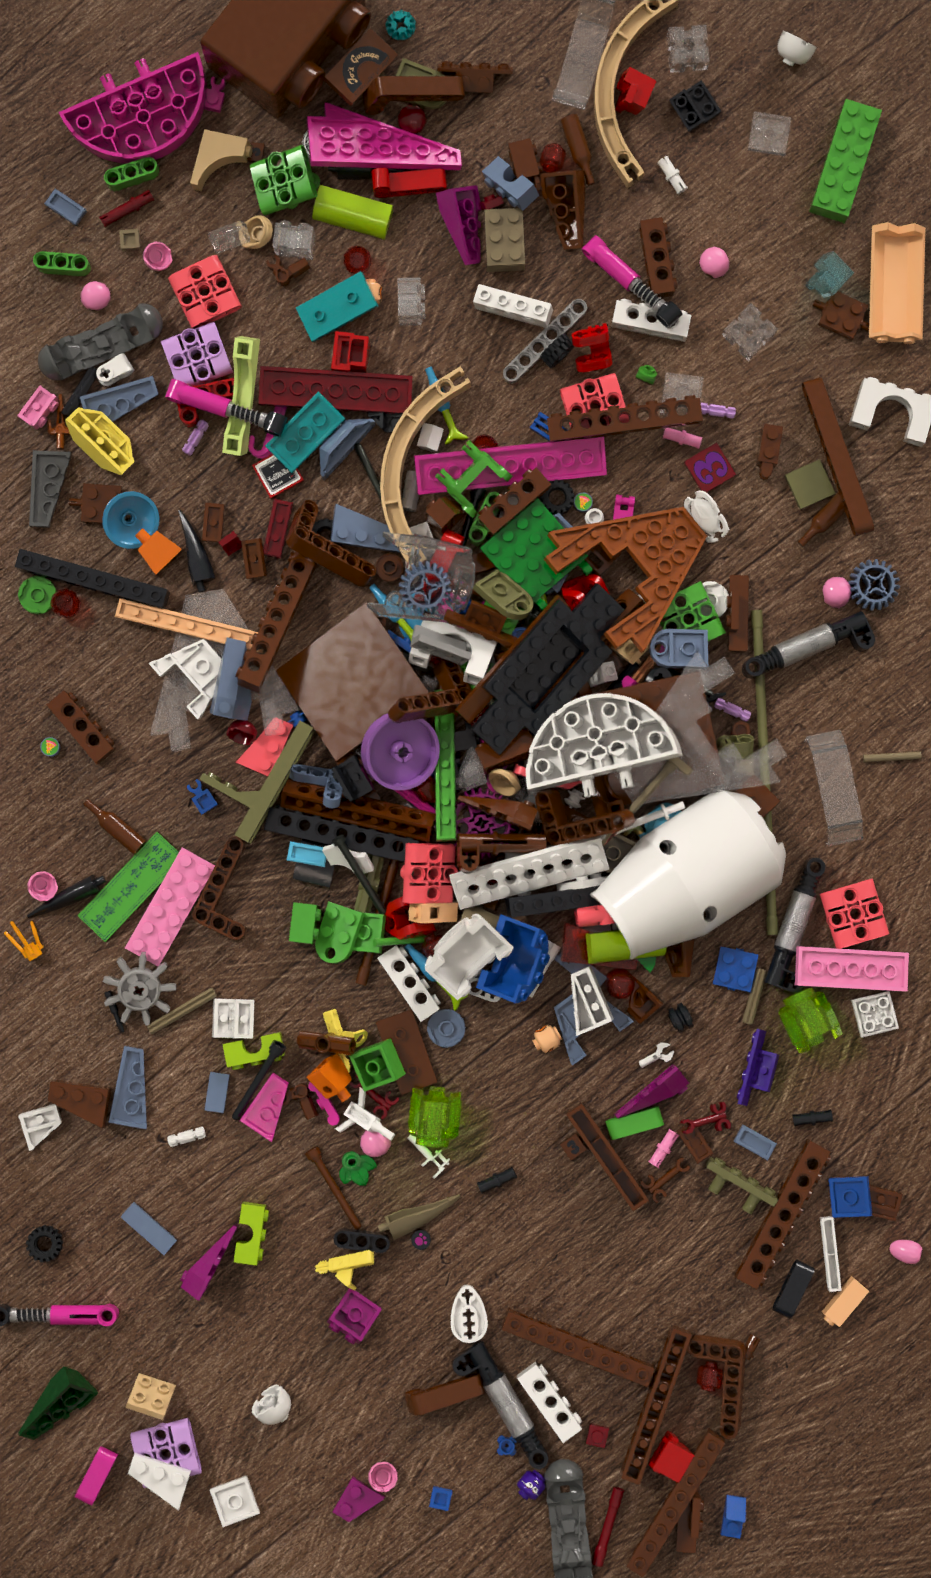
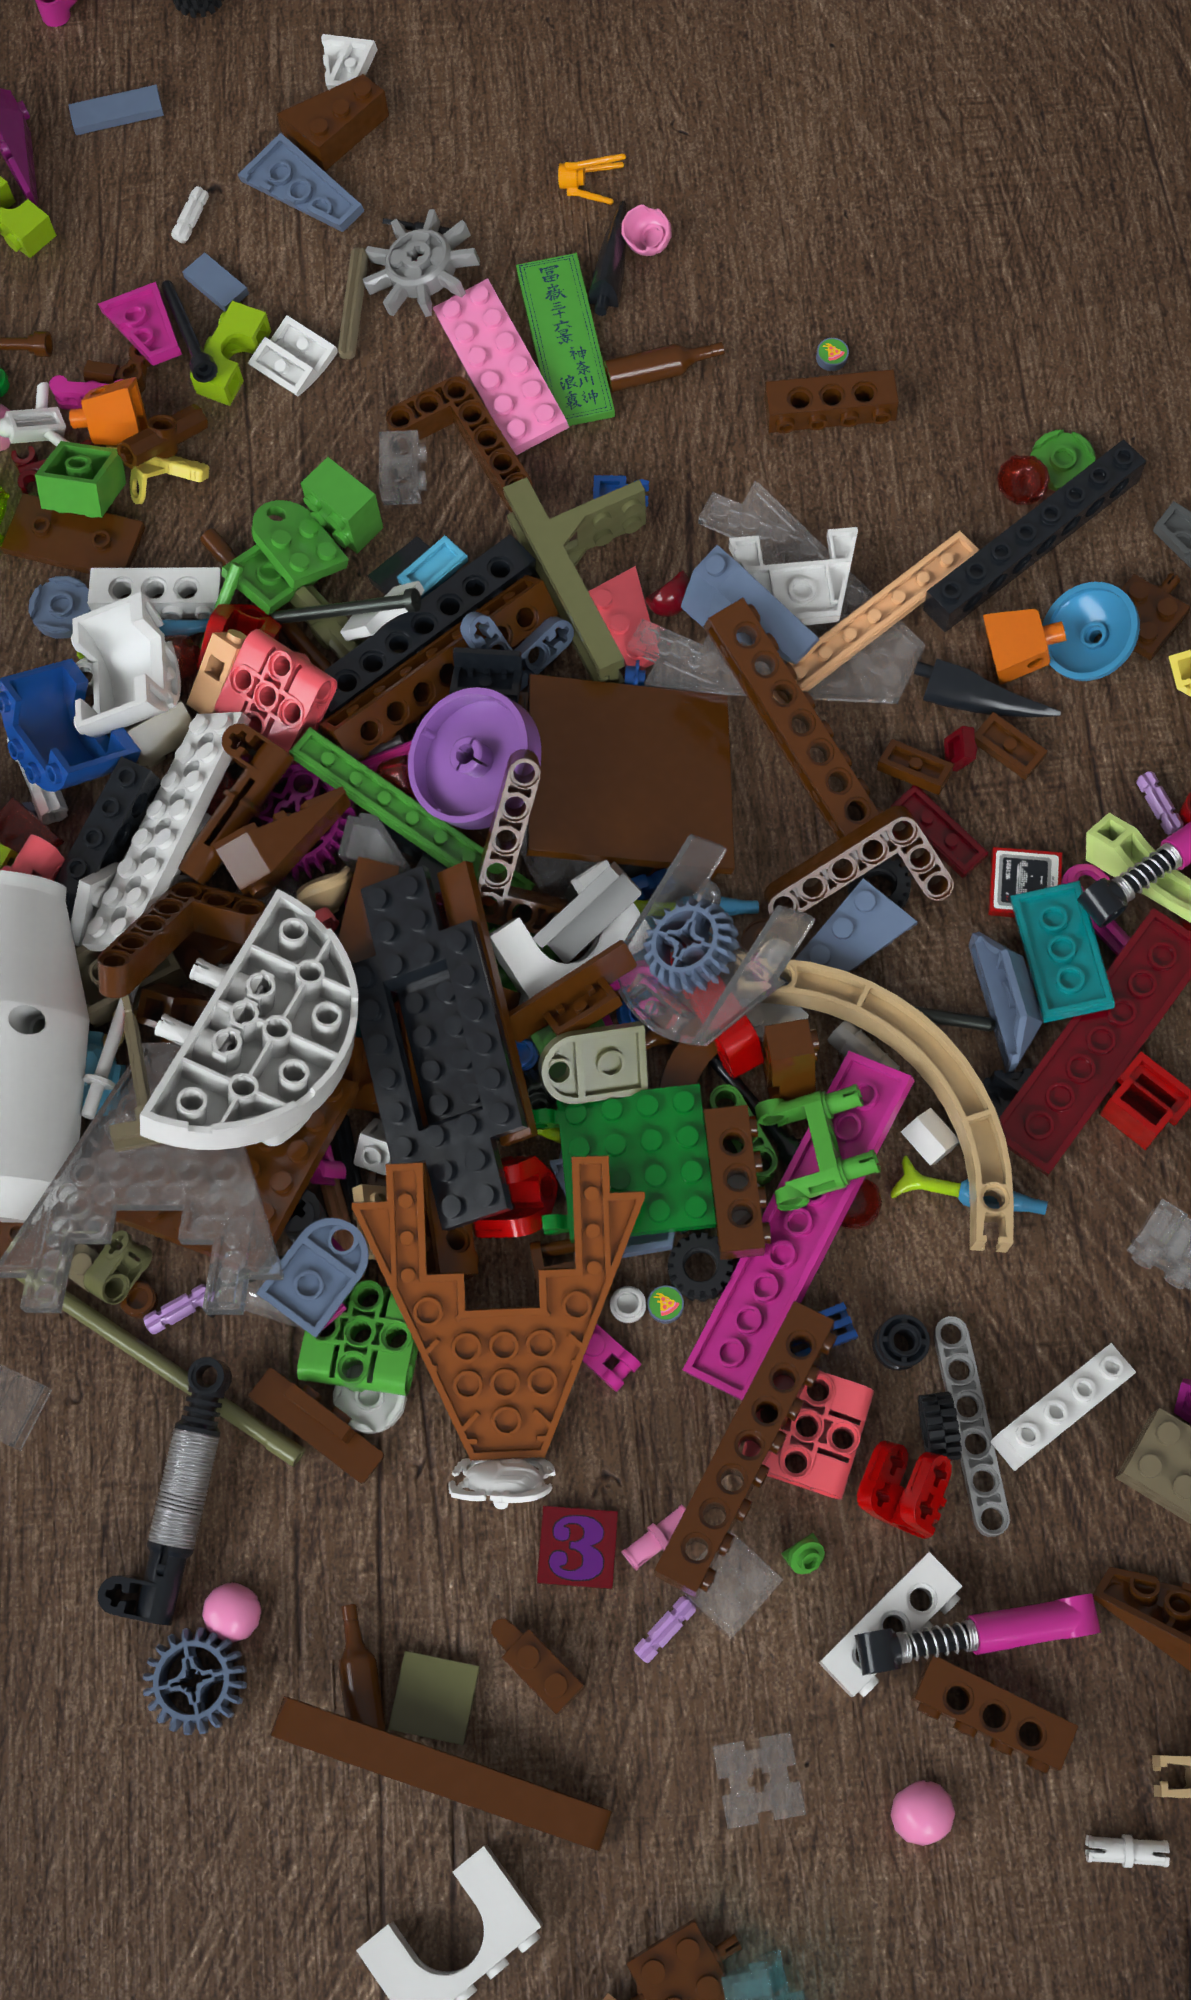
camera: 135 degrees right, 15 degrees down
(262, 918) = (398, 467): none -> clear brick
(530, 383) = (912, 1330): none -> black wheel

